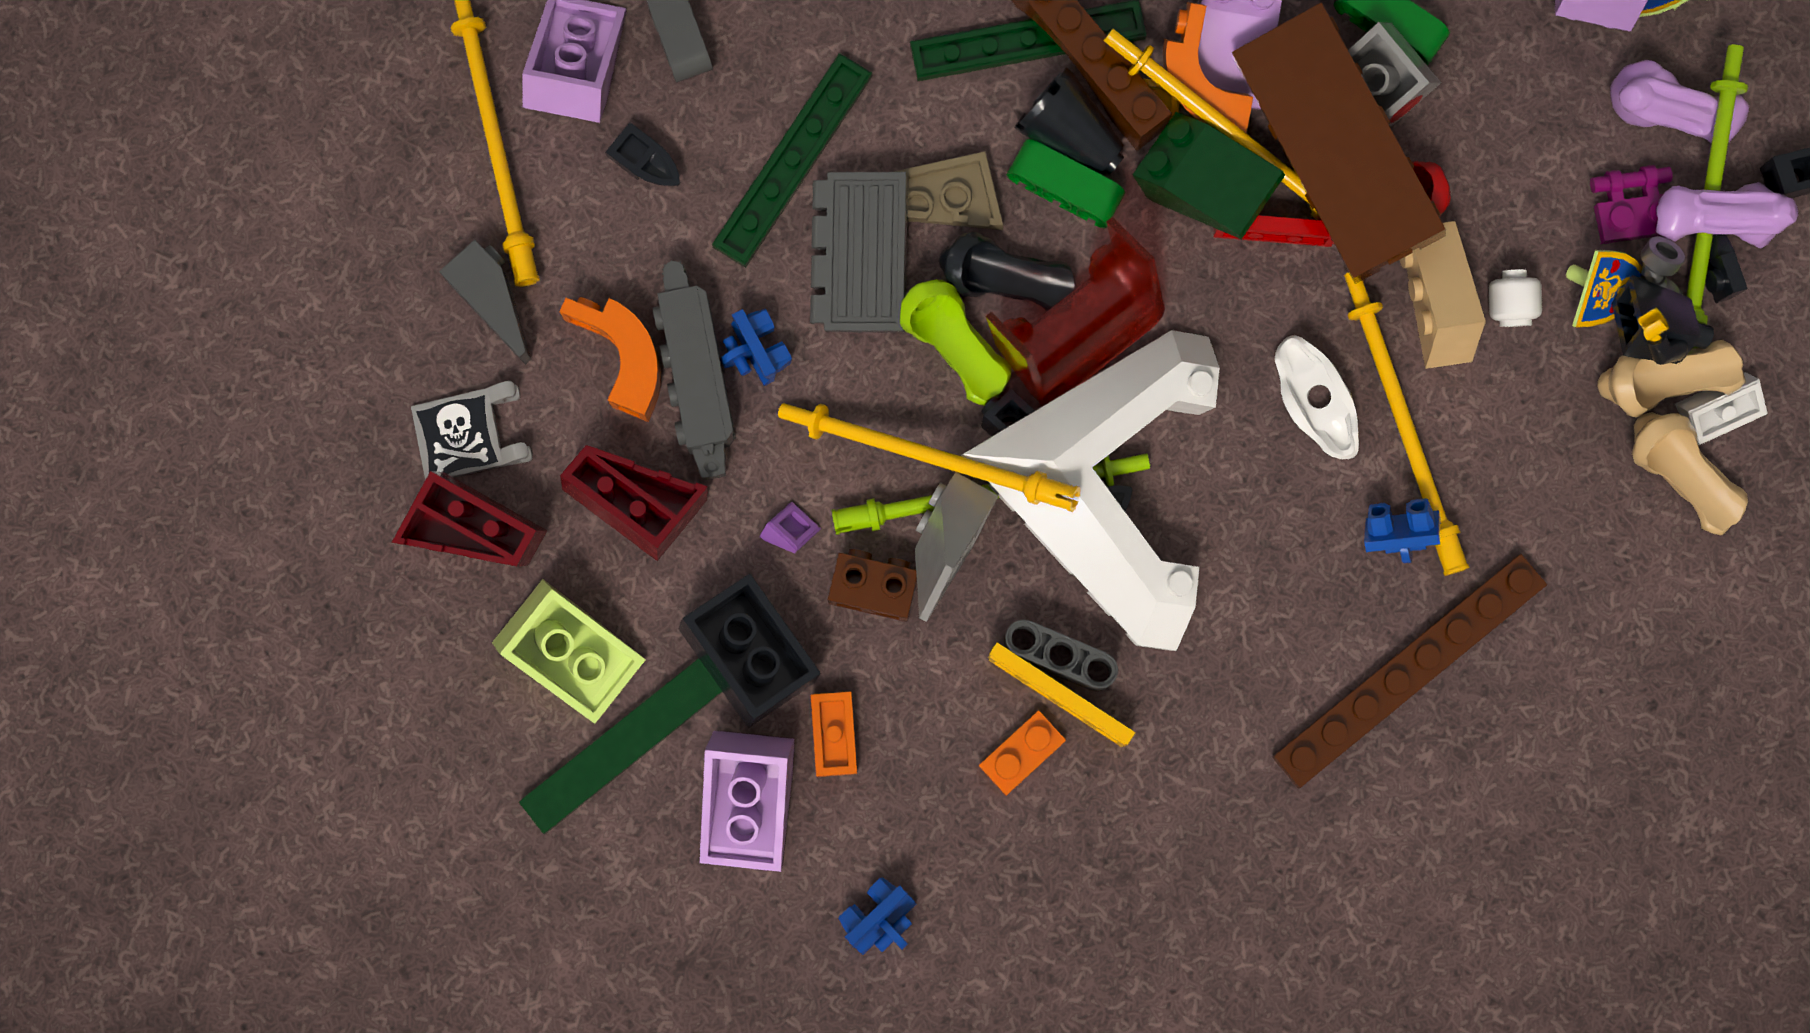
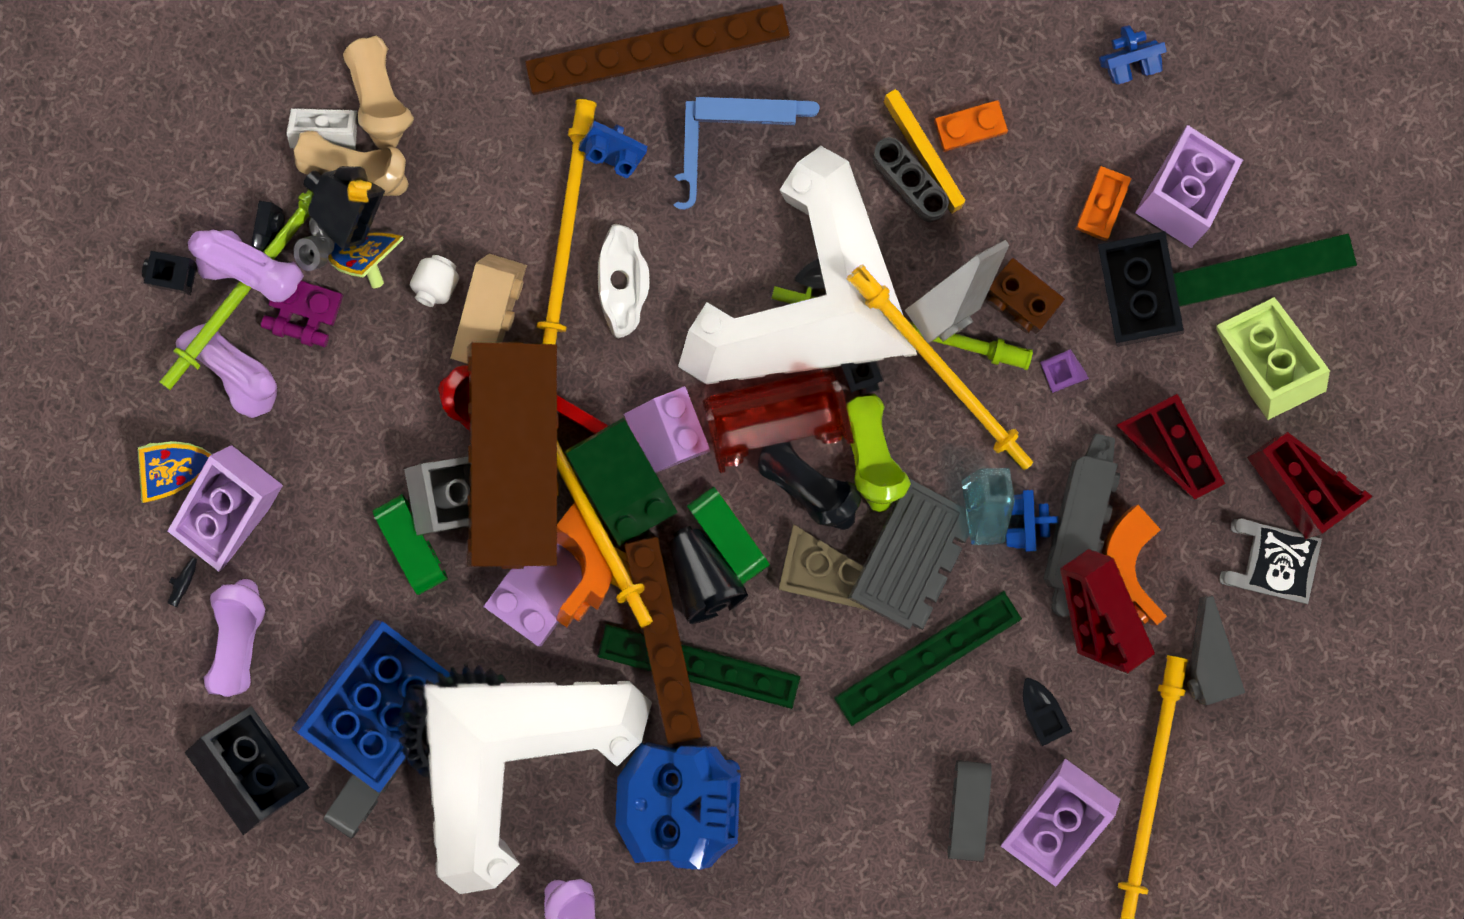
camera: 155 degrees left, 5 degrees up
(629, 276) = (1104, 613): none -> dark red wedge
(804, 339) = (988, 504): none -> clear light blue slope
(1188, 261) = (668, 430): none -> lavender slope
(1291, 635) = (733, 111): none -> medium blue hinge

